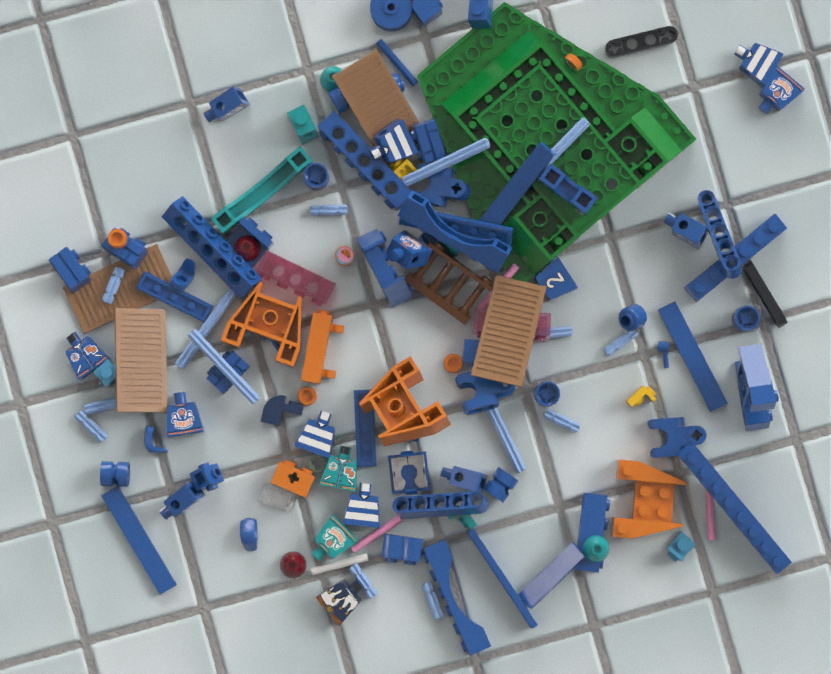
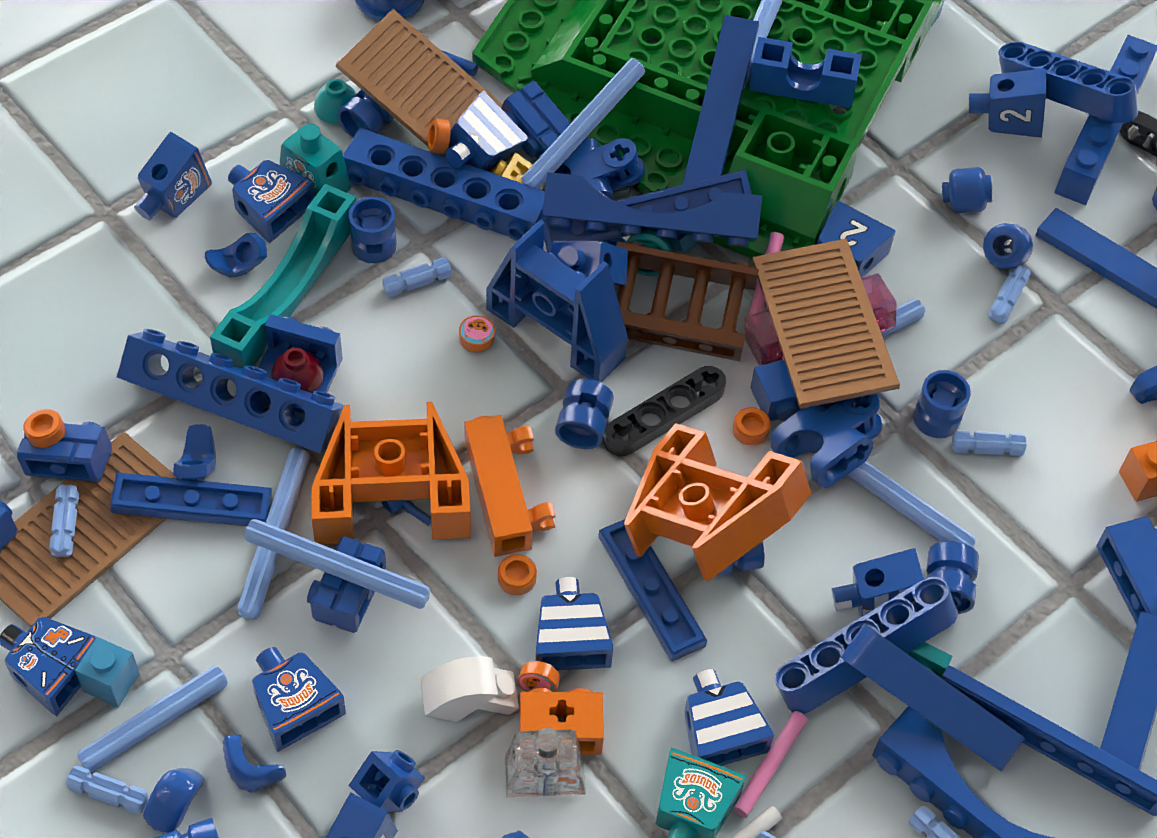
camera: 25 degrees left, 30 degrees down
(117, 442) = (172, 798): none -> blue hair
(140, 360) = (167, 624): medium nougat window -> none
(244, 162) = (238, 257): none -> blue hair
(259, 448) = (468, 685): none -> white brick
(271, 260) = (423, 378): clear pink brick -> none
(273, 131) = (270, 197): none -> blue torso
(274, 409) = (470, 608): dark blue brick -> none
(293, 454) = (538, 675): none -> orange tile
(322, 459) = (600, 671): sand green bush -> none
(340, 471) = (647, 674): teal torso -> none
(368, 332) = (584, 414): none -> blue wheel
(370, 136) = (438, 136): none -> orange tile
(402, 548) = (835, 764): blue brick -> none
(409, 472) = (772, 625): piece -> none
(414, 334) = (662, 407): none -> black beam
(454, 542) = (932, 697): none -> blue beam
(633, 273) = (967, 190): none -> blue head
(637, 397) = (1098, 348): yellow bracket -> none
(664, 347) = (1084, 276): blue hand -> none

